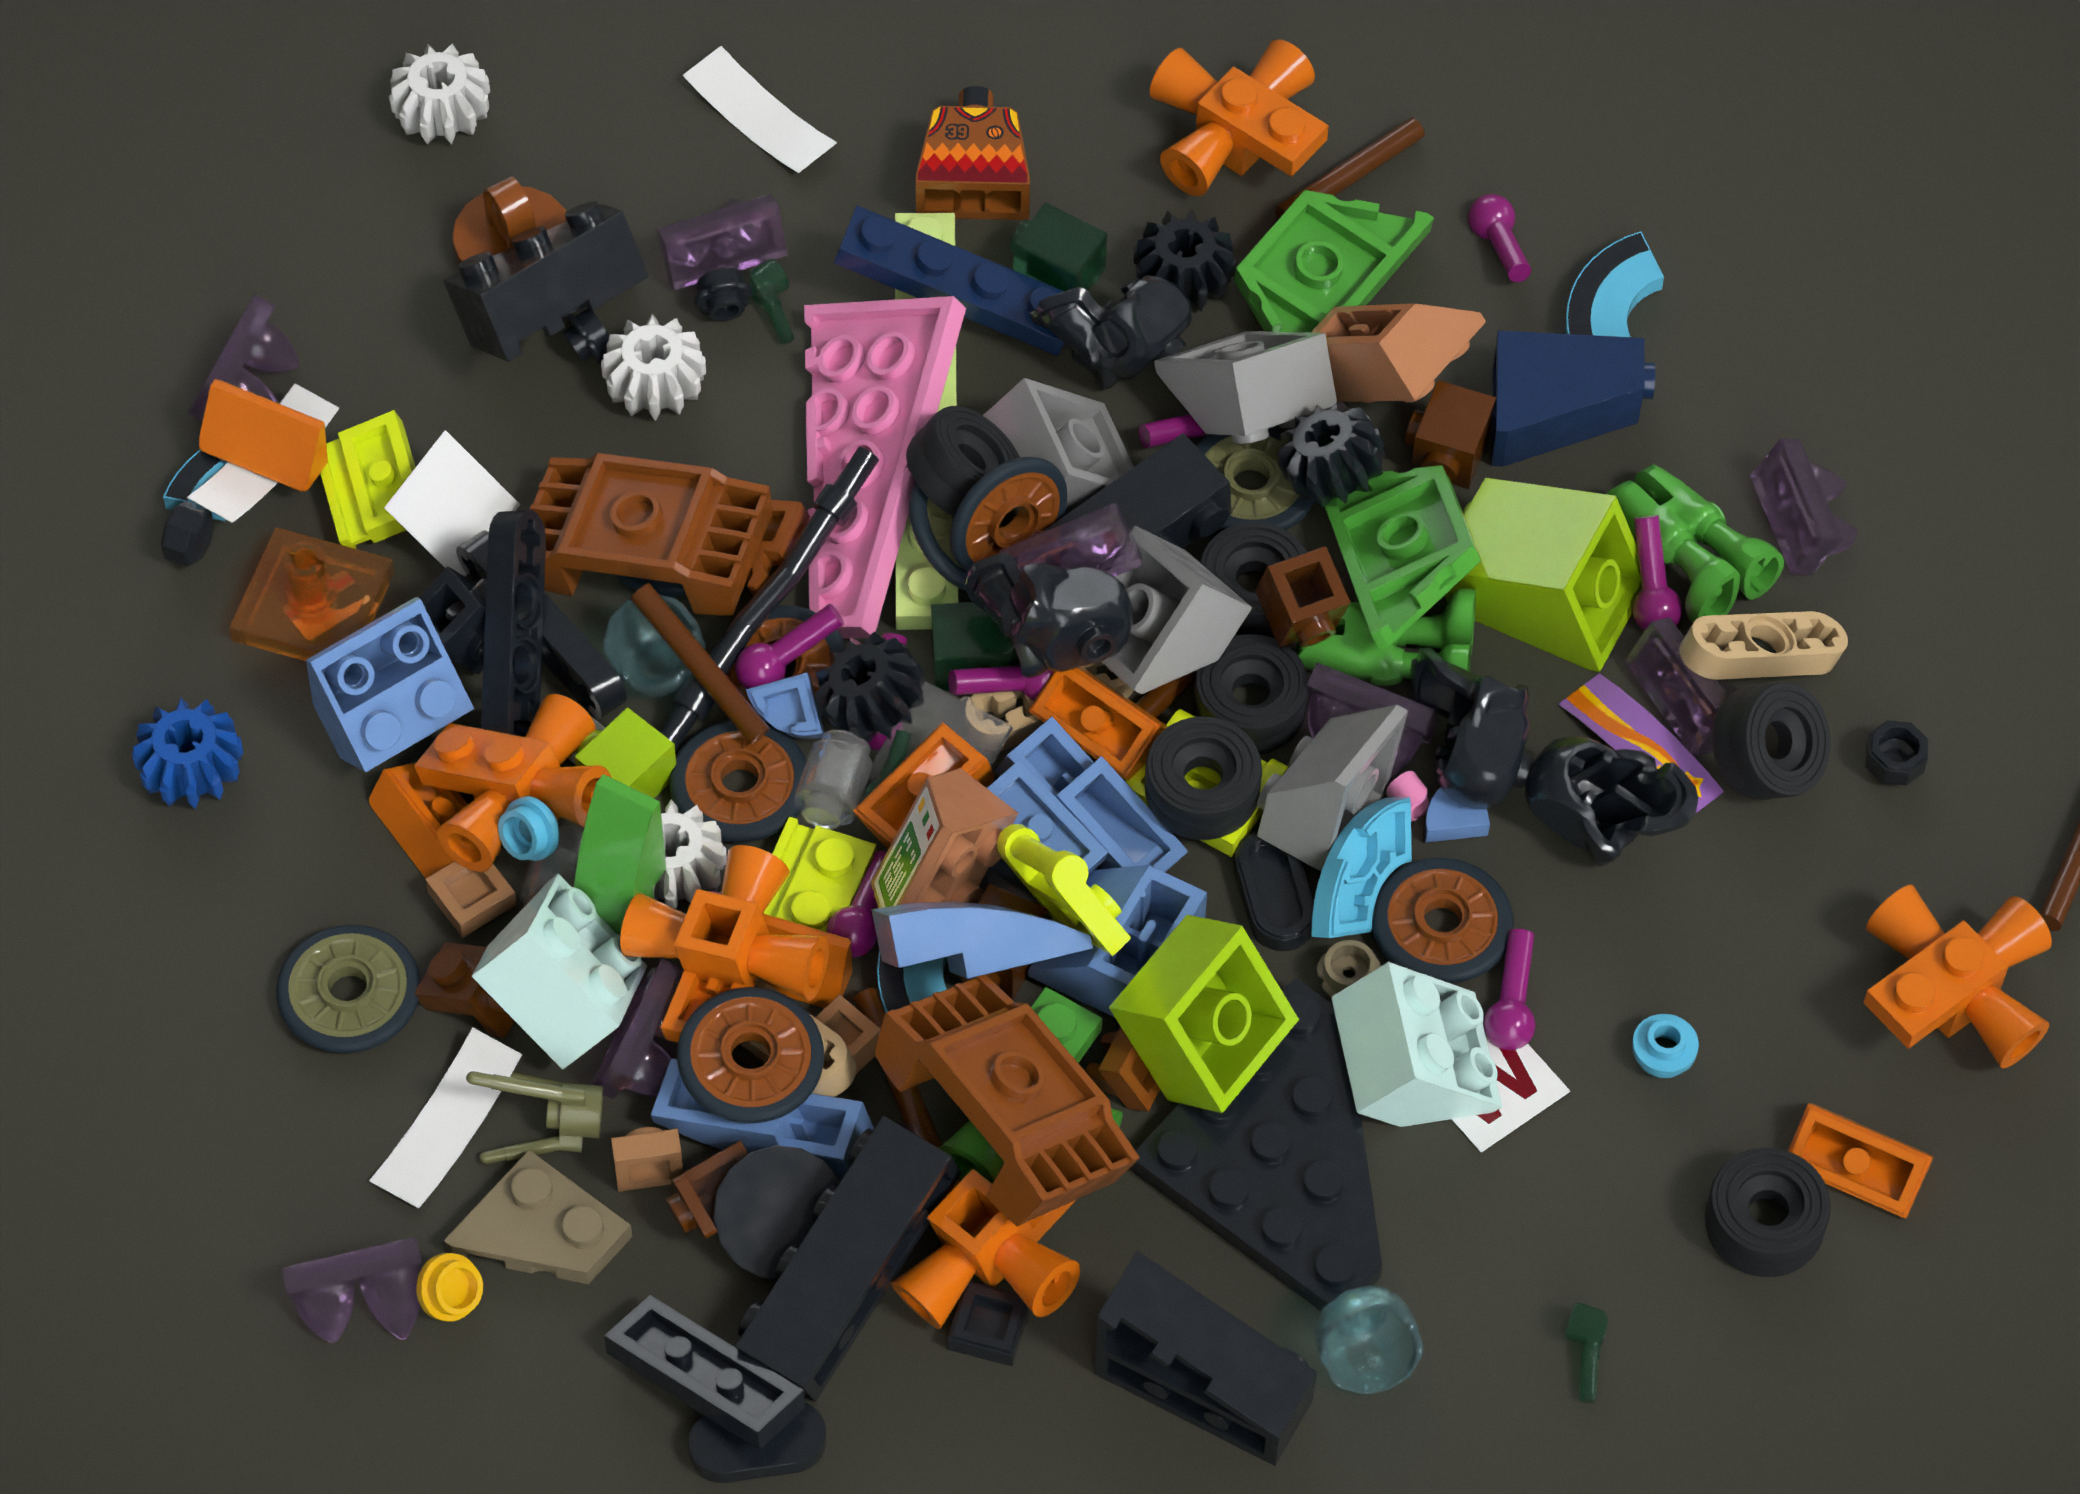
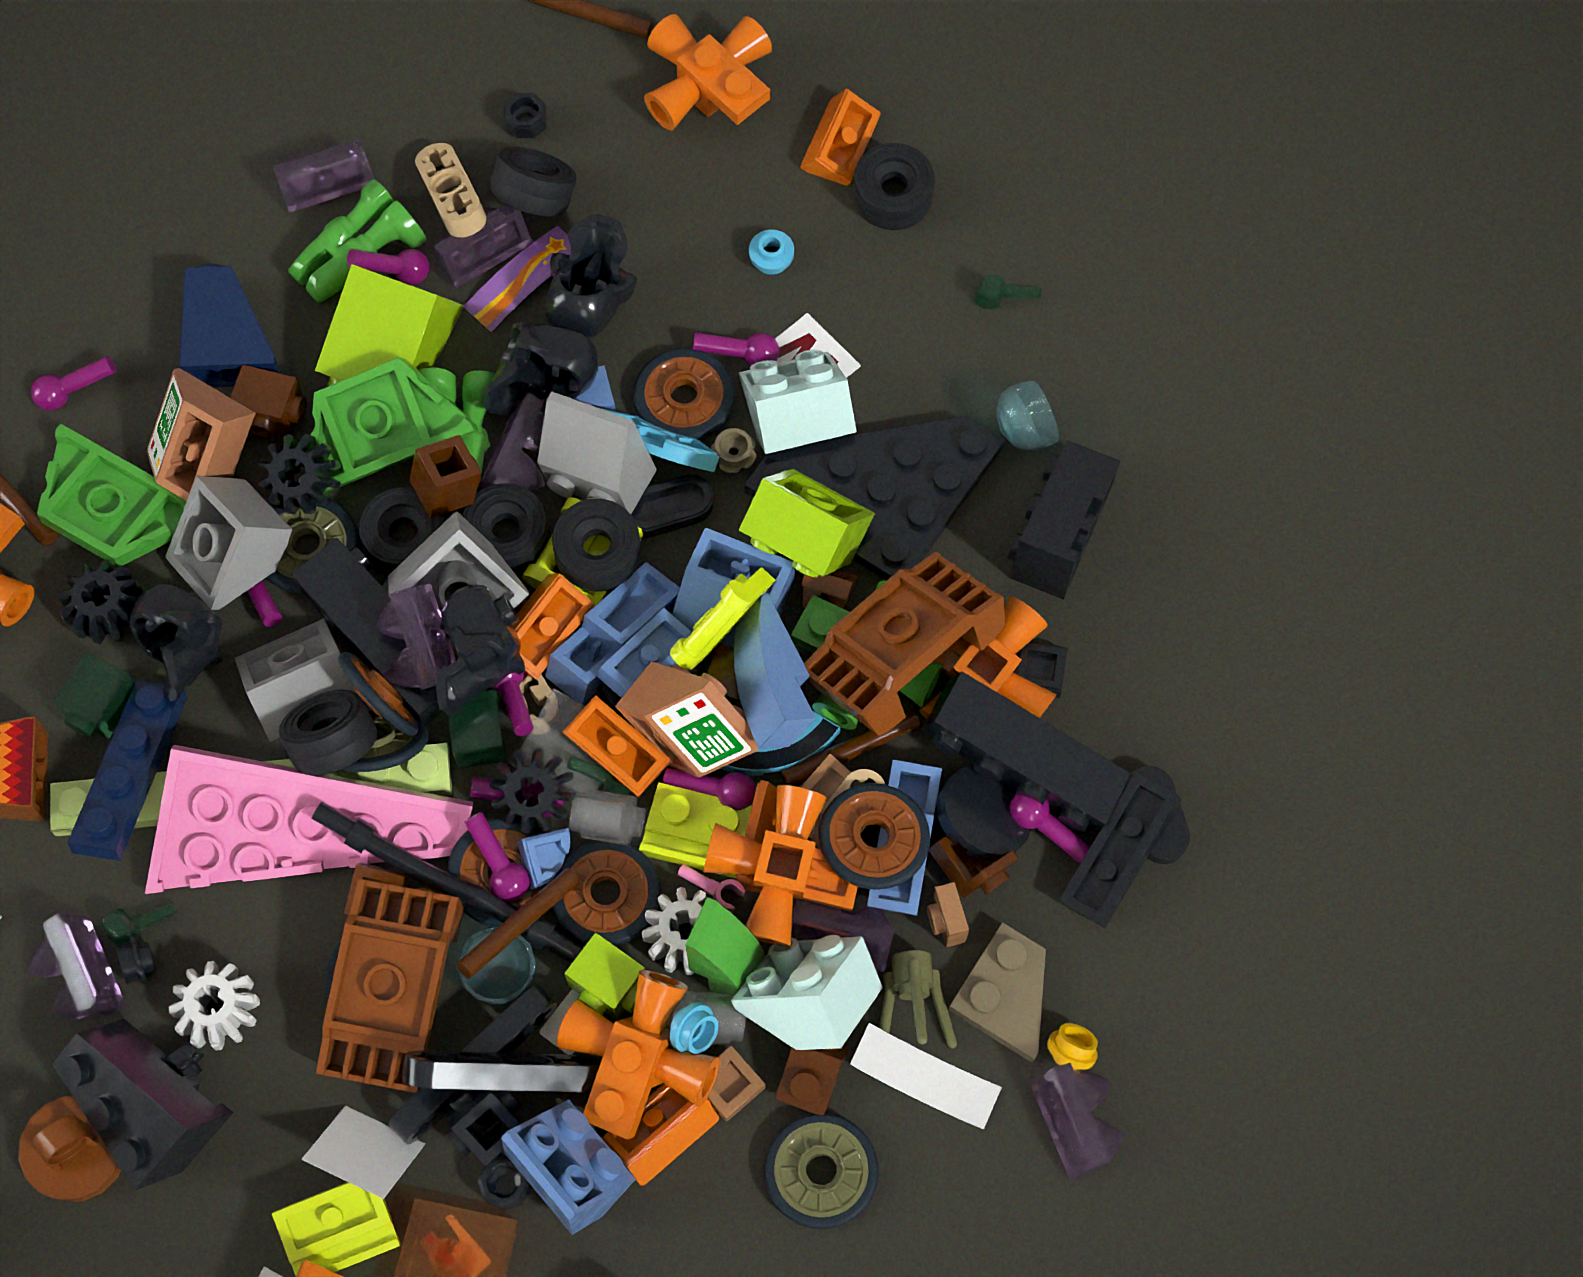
camera: 95 degrees left, 10 degrees up
(758, 1289) = (1033, 815): none -> magenta bar
(1612, 288) = (129, 309): tile -> none

